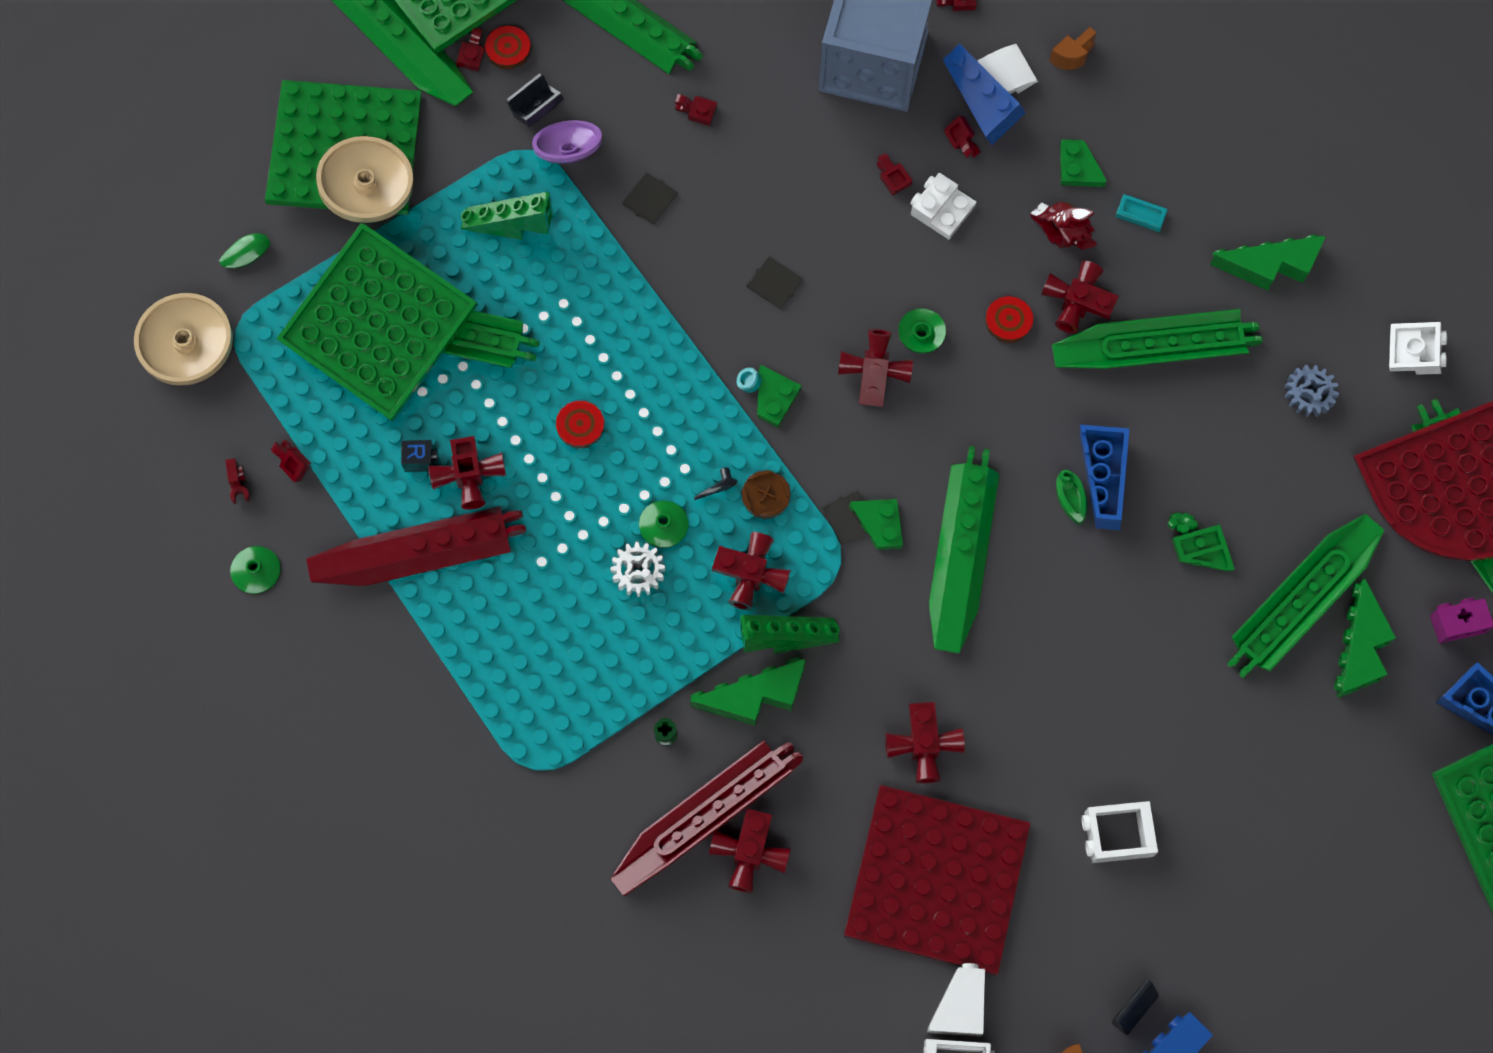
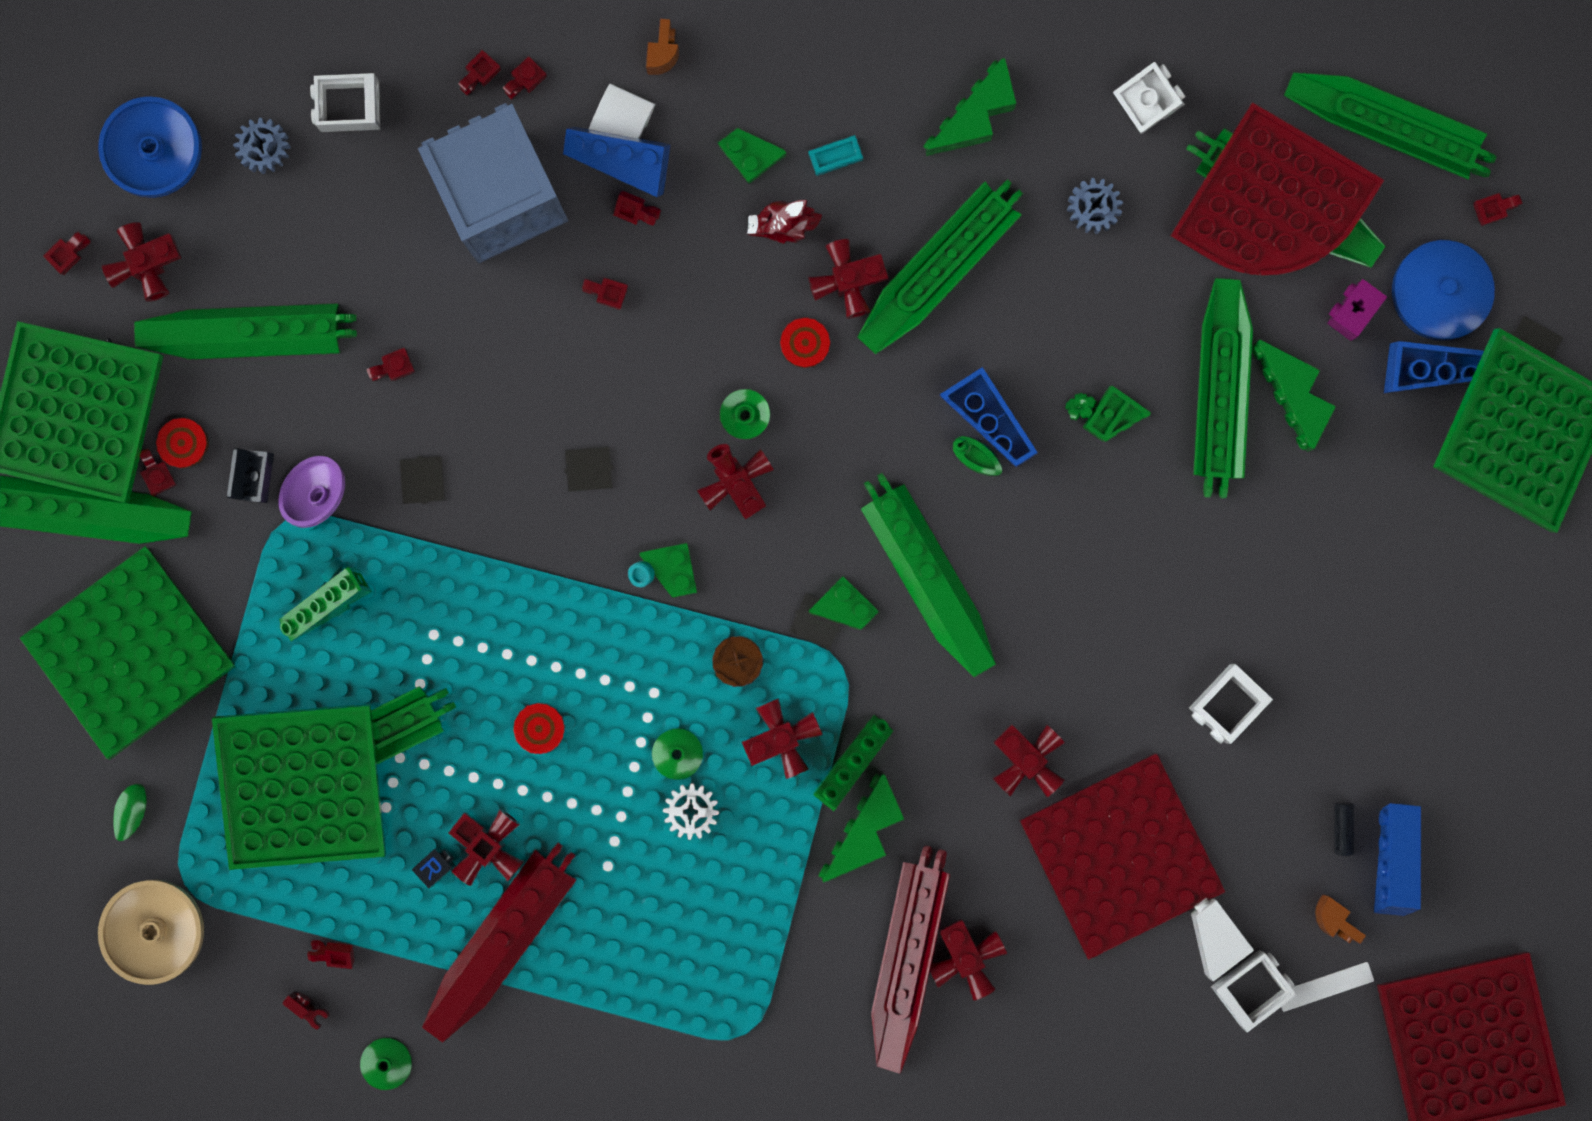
camera: 40 degrees left, 15 degrees up
(364, 179) = (177, 675): tan dish -> none
(672, 734) = (823, 912): dark green bush -> none
(722, 485) = (695, 687): black bar -> none
(942, 205) = (669, 286): white plate -> none

